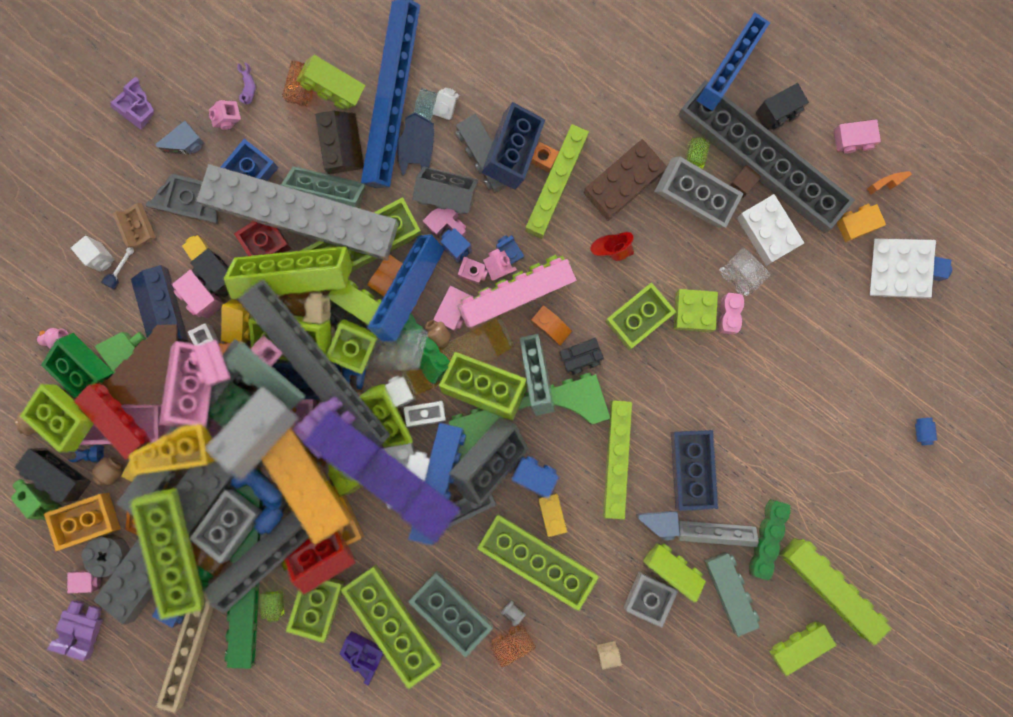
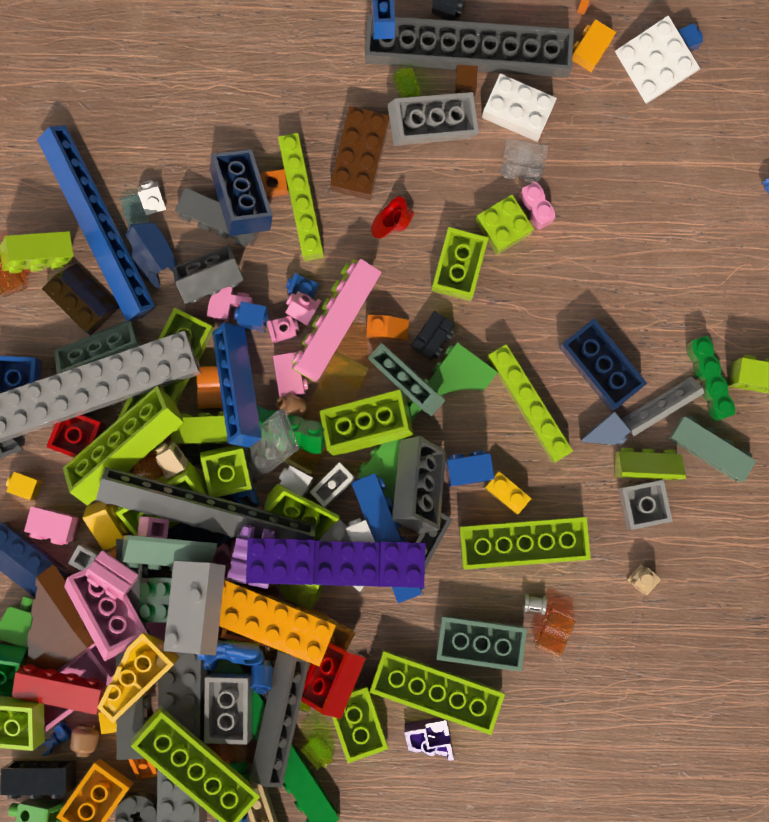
camera: 35 degrees left, 0 degrees up
(212, 270) = (52, 493): black brick -> none

